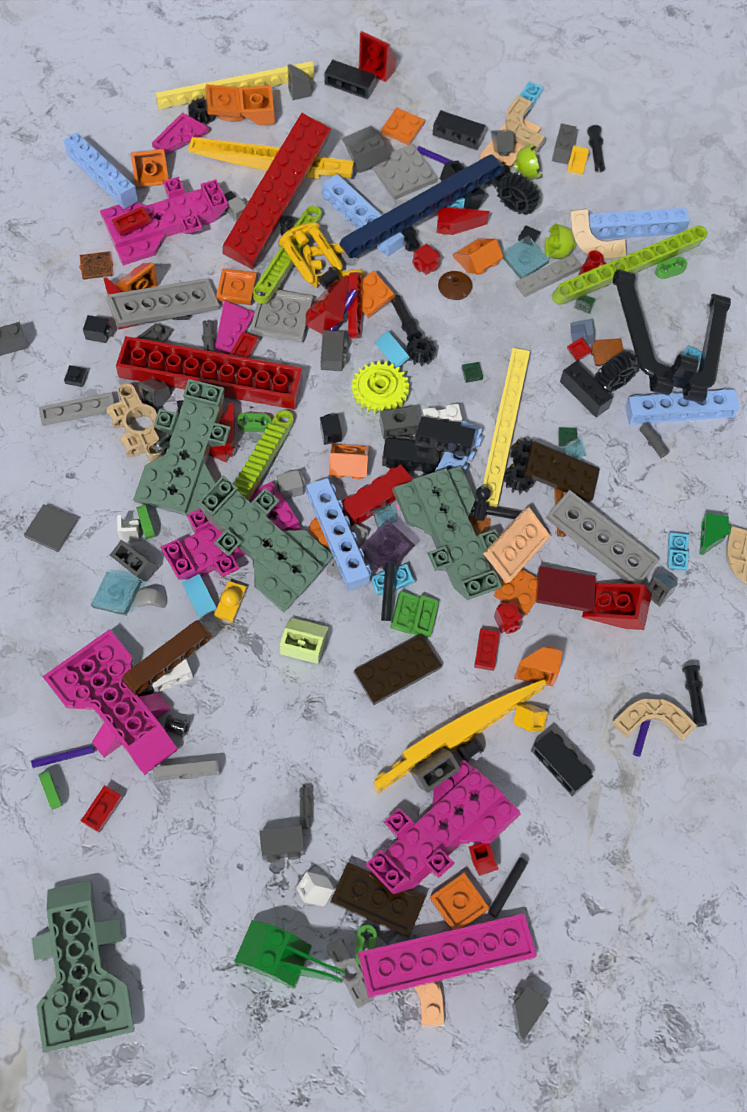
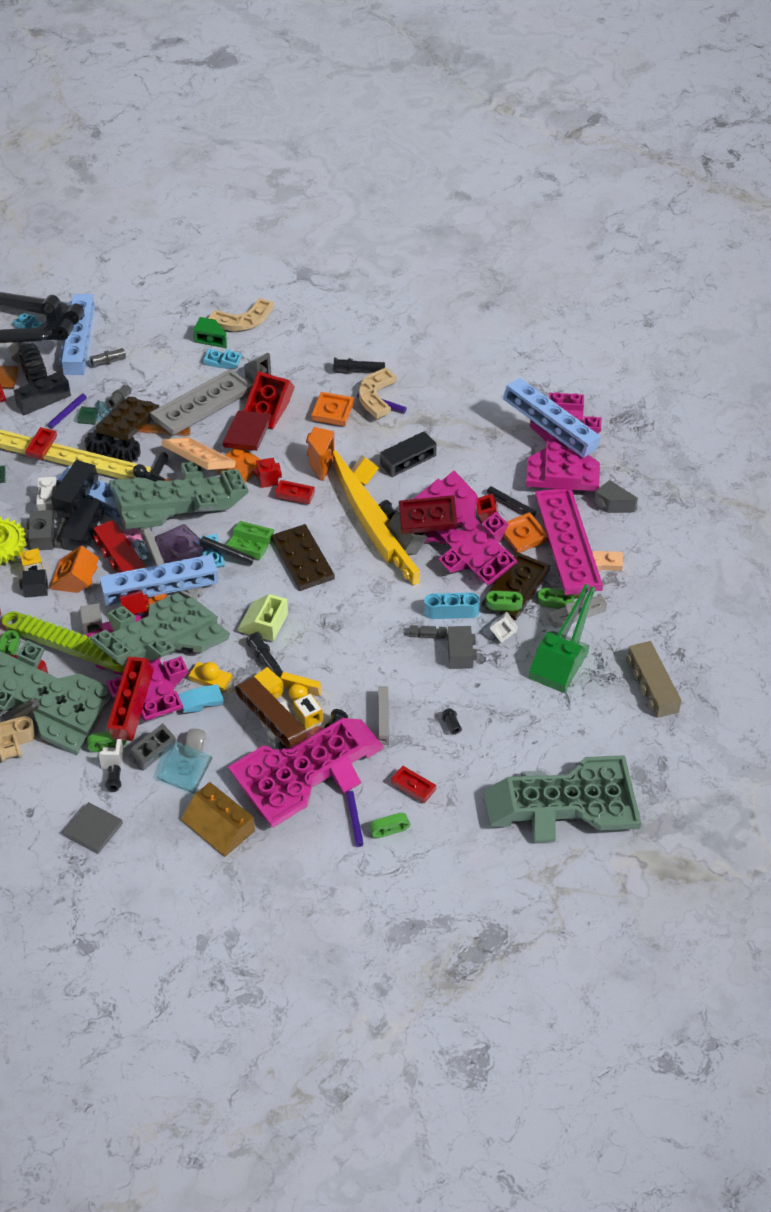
camera: 80 degrees left, 15 degrees down
(57, 632) = (218, 819): none -> pearl gold slope
(103, 535) = (113, 781): none -> black pin
(171, 527) = (130, 698): none -> red brick
(184, 841) = (449, 716): none -> black pin
(188, 696) = (308, 711): none -> brick
(218, 655) = (270, 682): none -> yellow brick
(218, 685) = (300, 686): none -> yellow tile
(251, 1065) = (653, 679): none -> dark tan brick
(263, 643) = (262, 651): none -> black pin
(302, 514) = (135, 601): none -> red brick
(341, 819) = (451, 605): none -> medium azure beam
(351, 885) = (504, 600): none -> bright green beam
(353, 421) = (31, 560): none -> yellow brick
(365, 515) = (151, 546): none -> light grey tile
(447, 787) = (428, 514): none -> dark red tile
(508, 399) = (41, 443): none -> red plate
(570, 417) = (67, 411): none -> dark purple piece
(588, 961) = (551, 417): none -> light blue brick
(594, 458) = (118, 396): none -> dark grey pin
(620, 675) = (332, 408): none -> orange plate
(626, 944) = (558, 464): none -> dark pink piece

